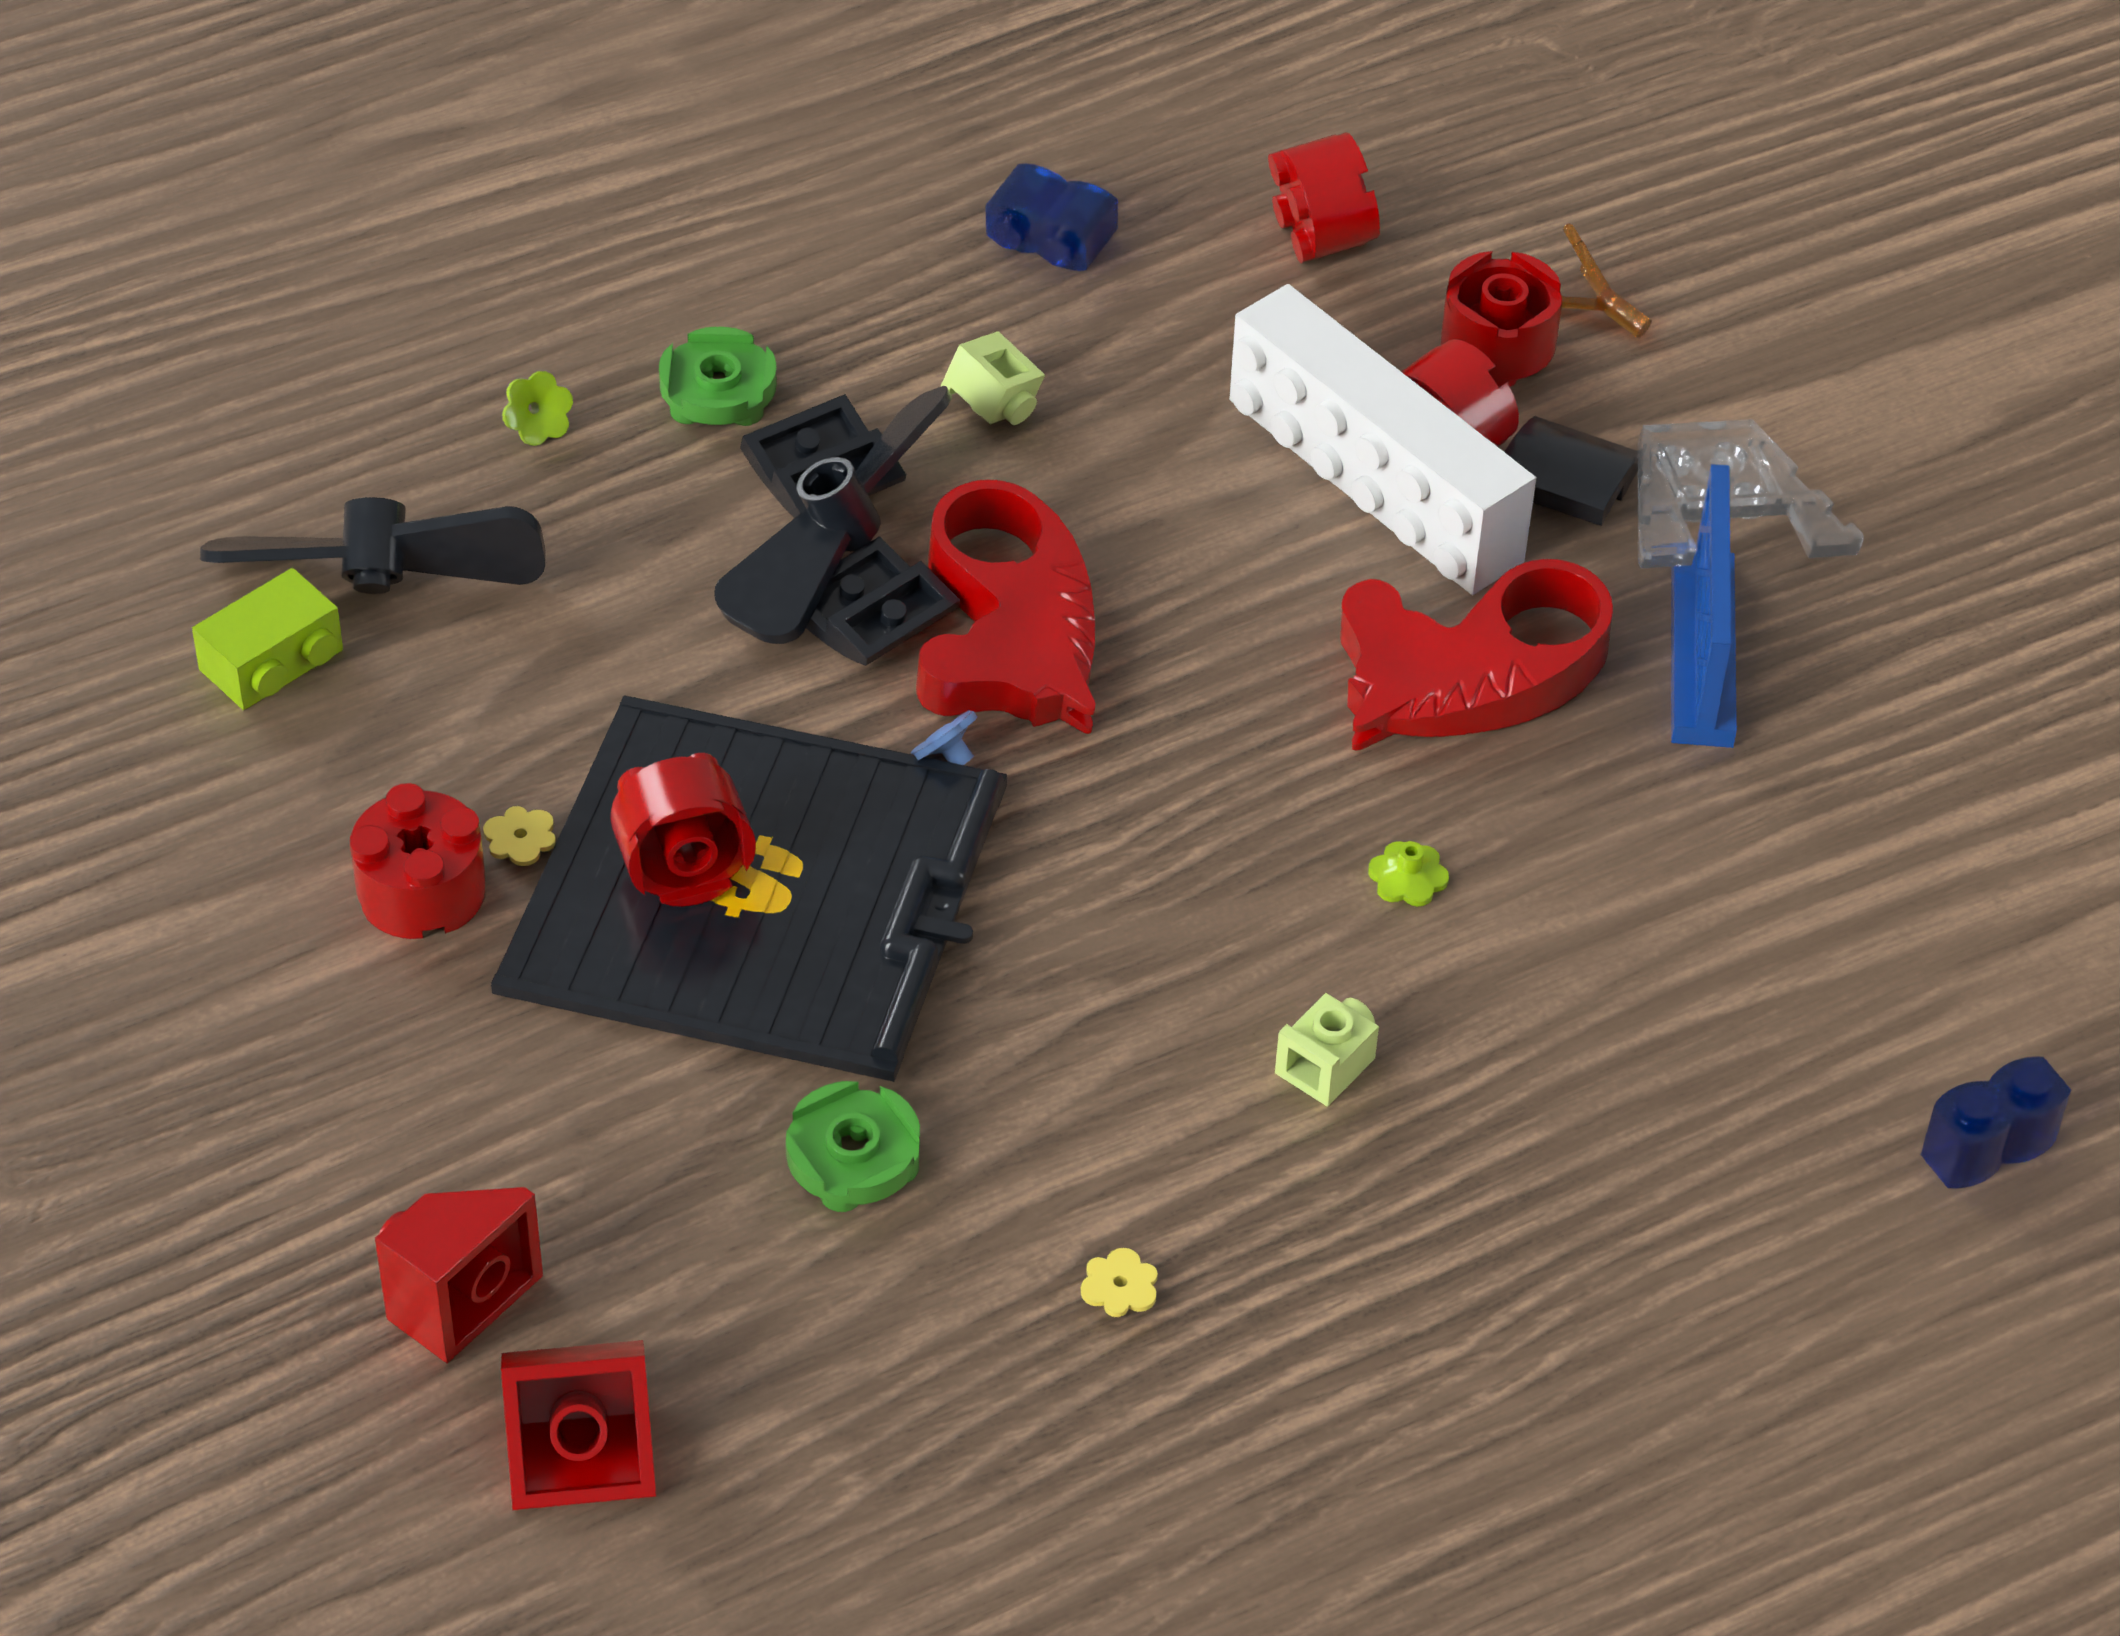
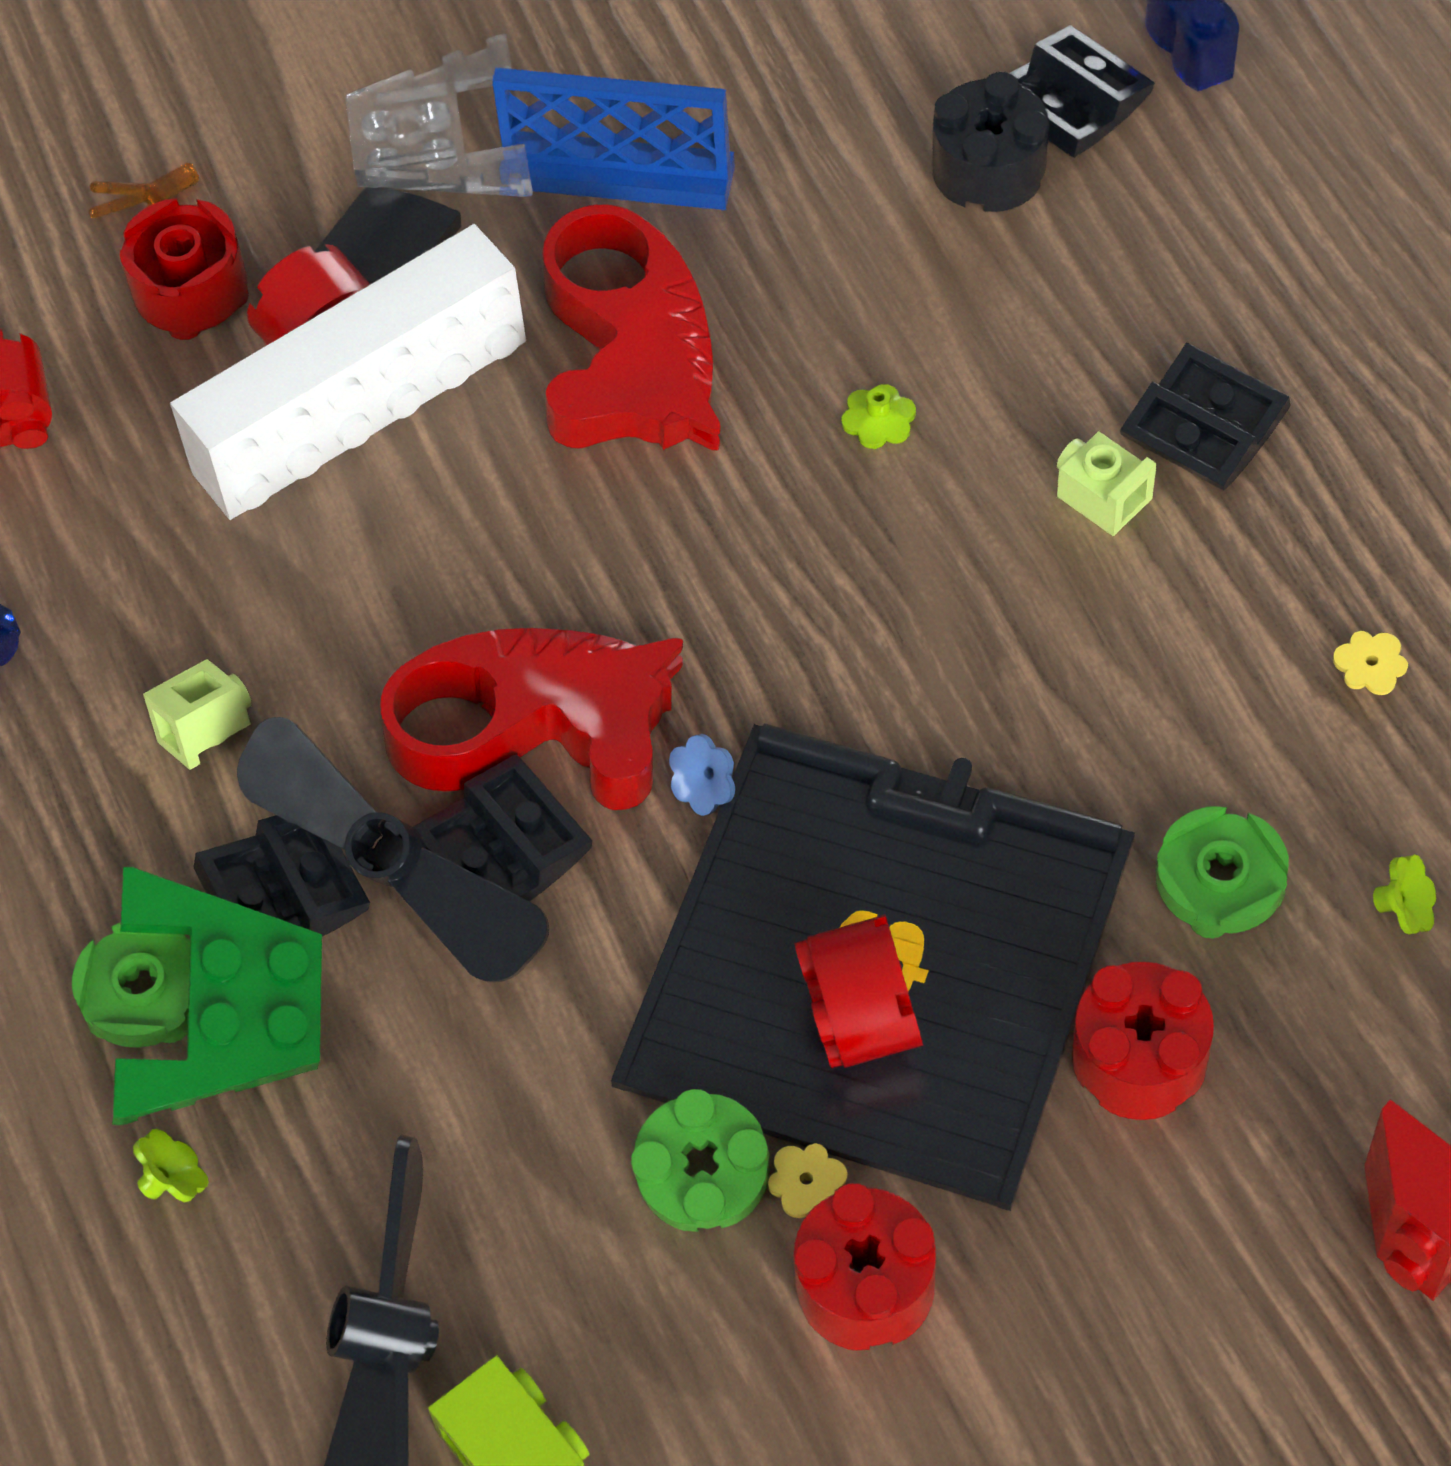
camera: 80 degrees left, 10 degrees up
(531, 730) = (706, 1200): none -> bright green plate
(650, 1064) = (1148, 1005): none -> red brick
(697, 437) = (248, 998): none -> green wing
(820, 1309) = (1408, 895): none -> lime plant
(1431, 1144) = (1206, 416): none -> black slope
(1775, 936) = (990, 143): none -> black brick
(1887, 1027) = (1081, 88): none -> black slope

